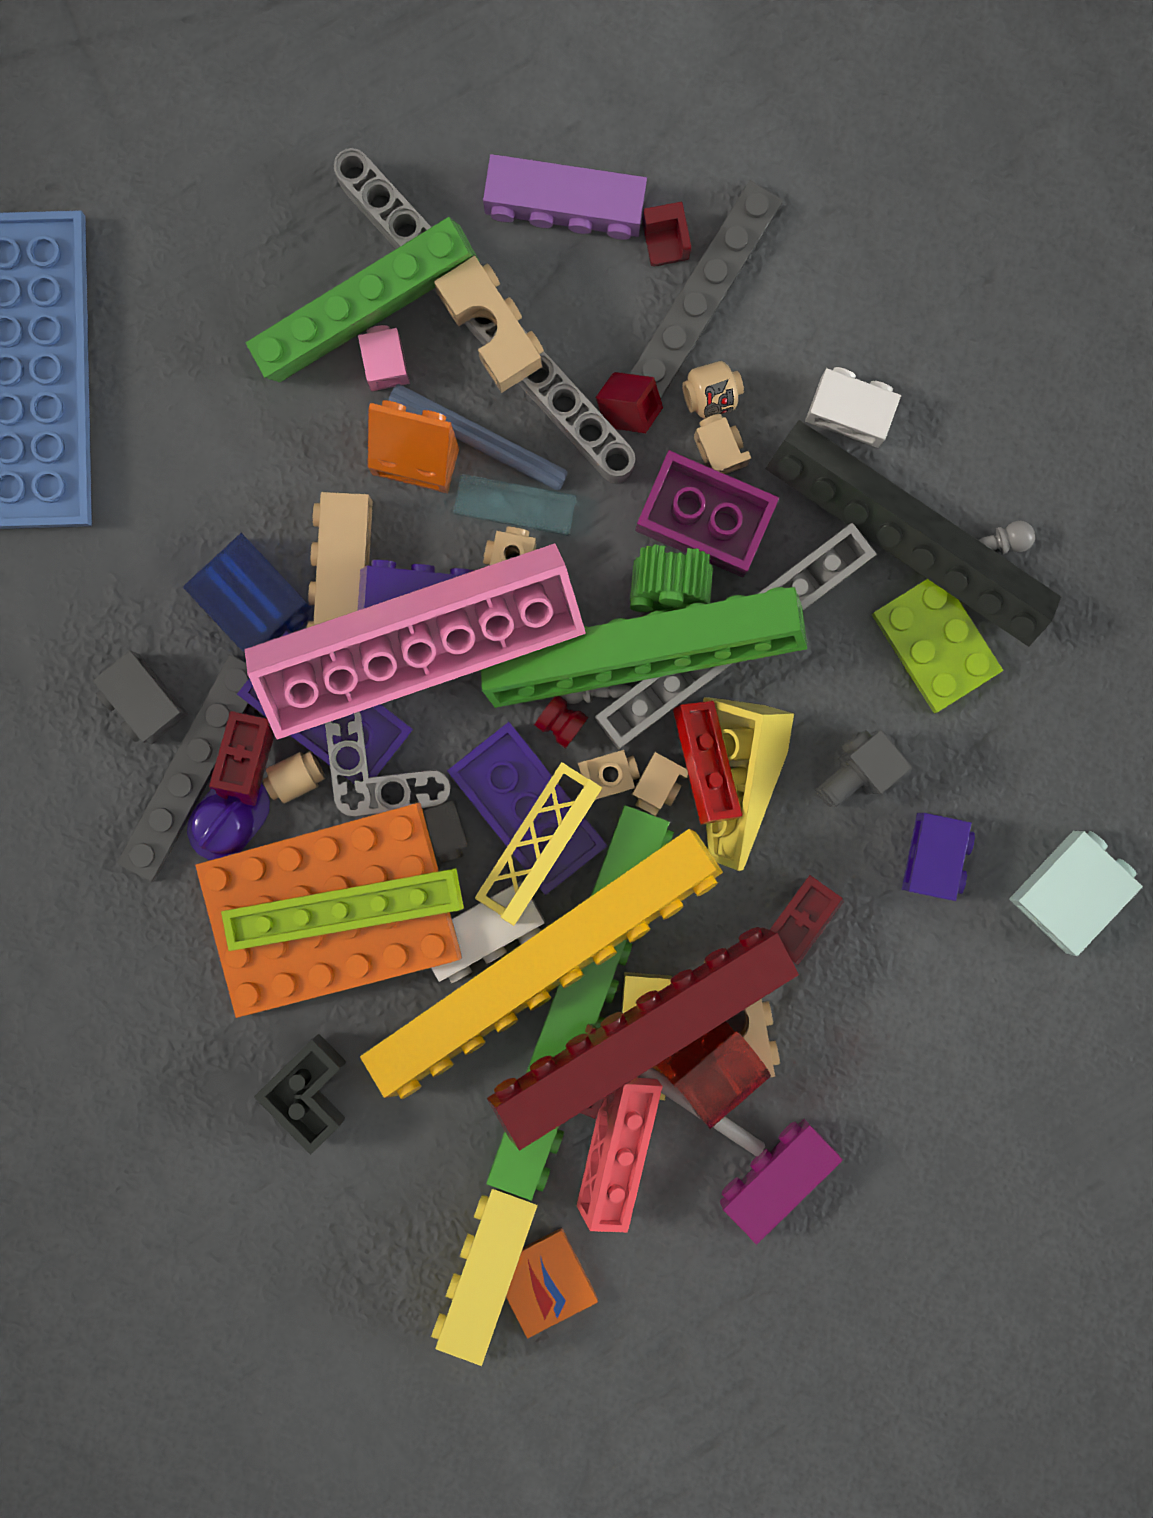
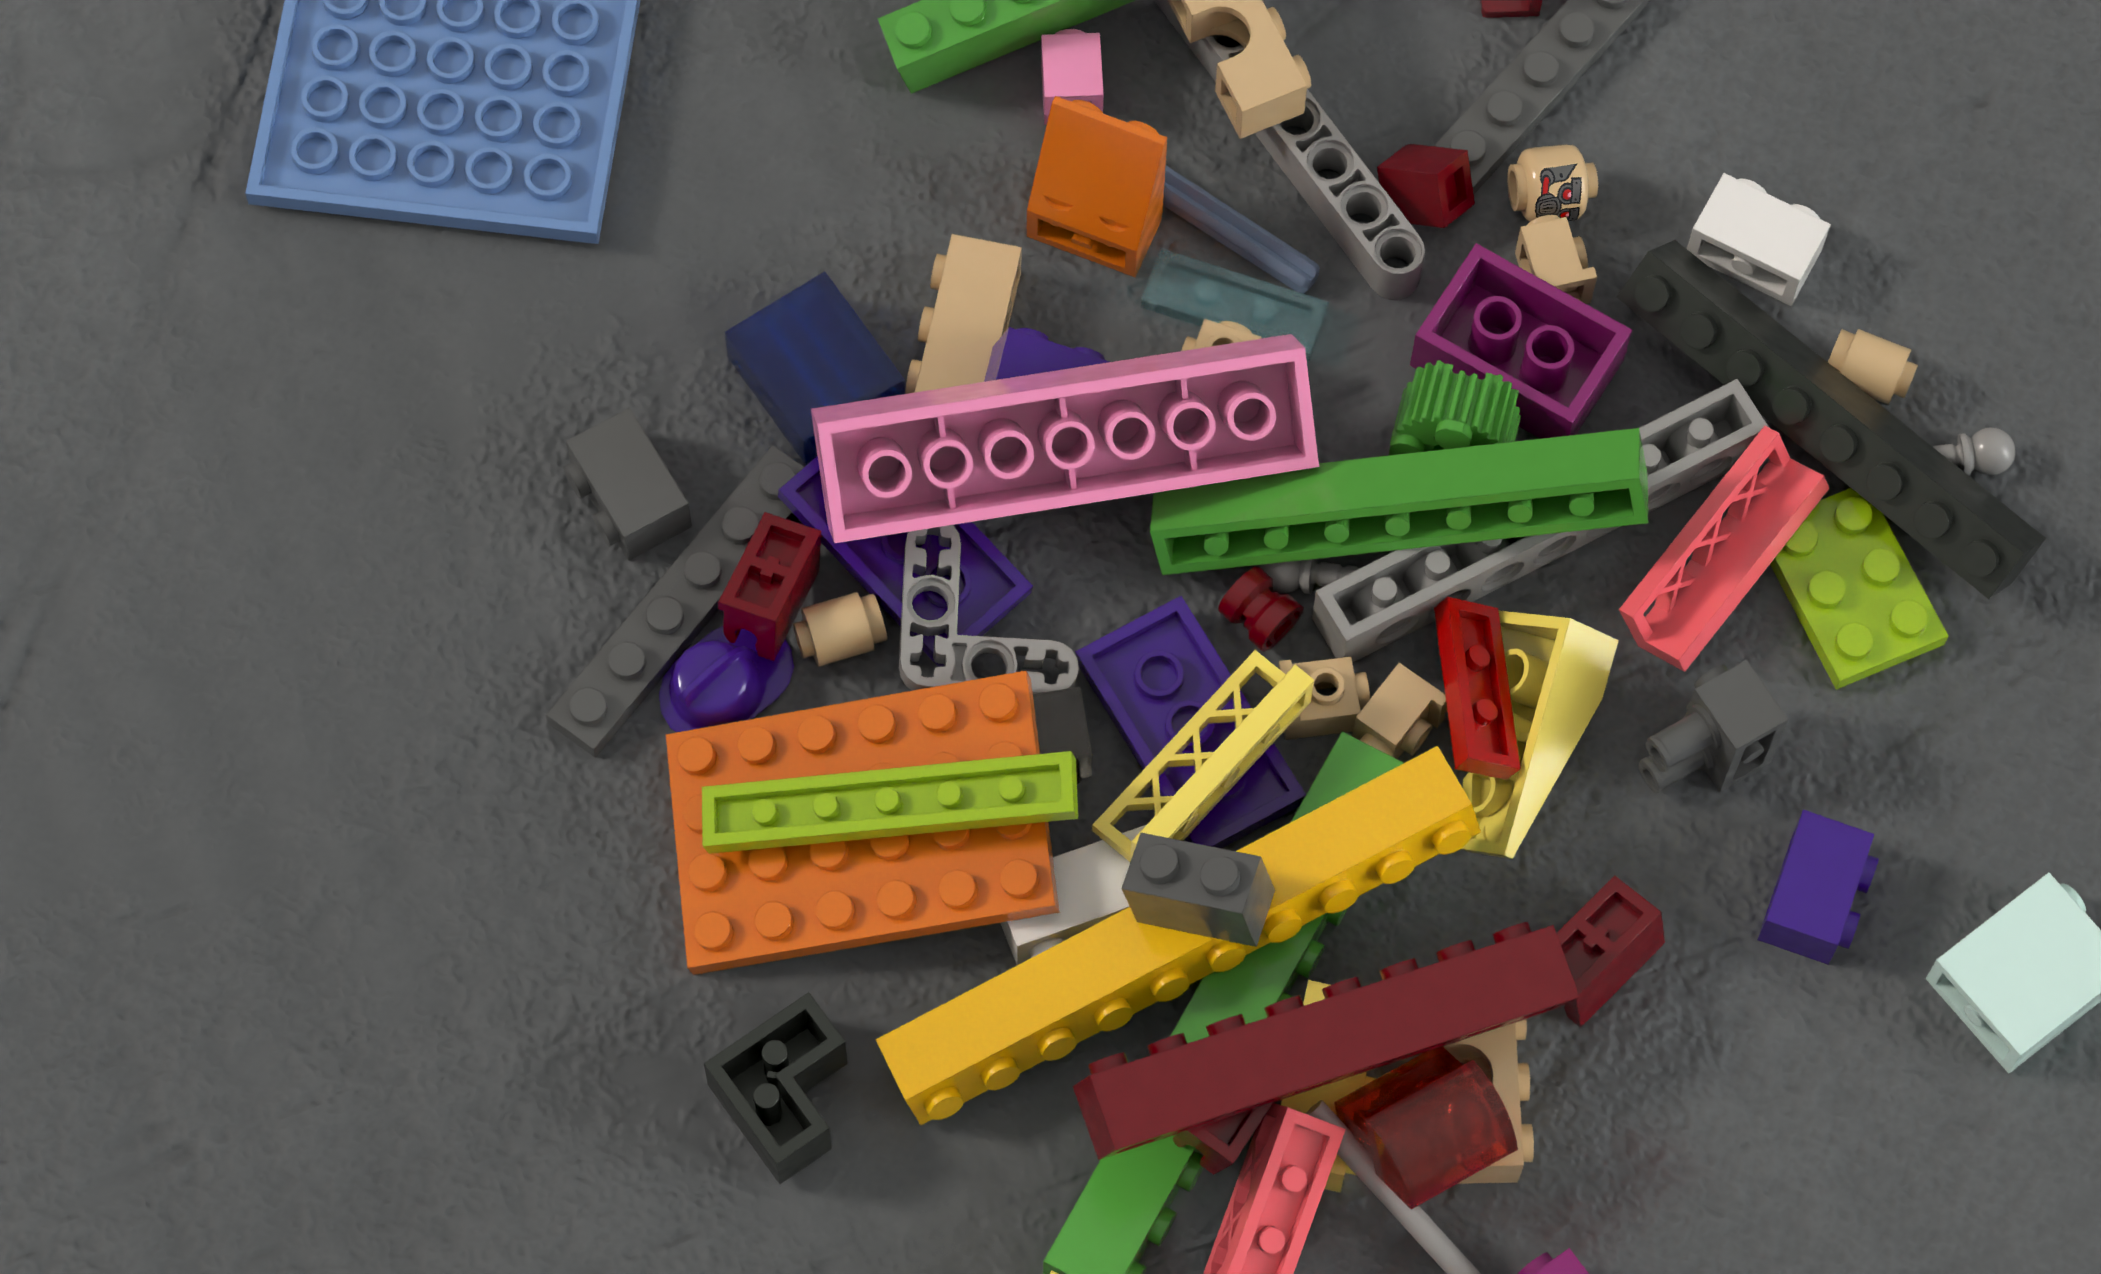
camera: 10 degrees right, 20 degrees down
(547, 952) = (1198, 889): none -> dark grey brick
(855, 638) = (1725, 553): none -> coral fence
(937, 488) = (1873, 364): none -> tan brick

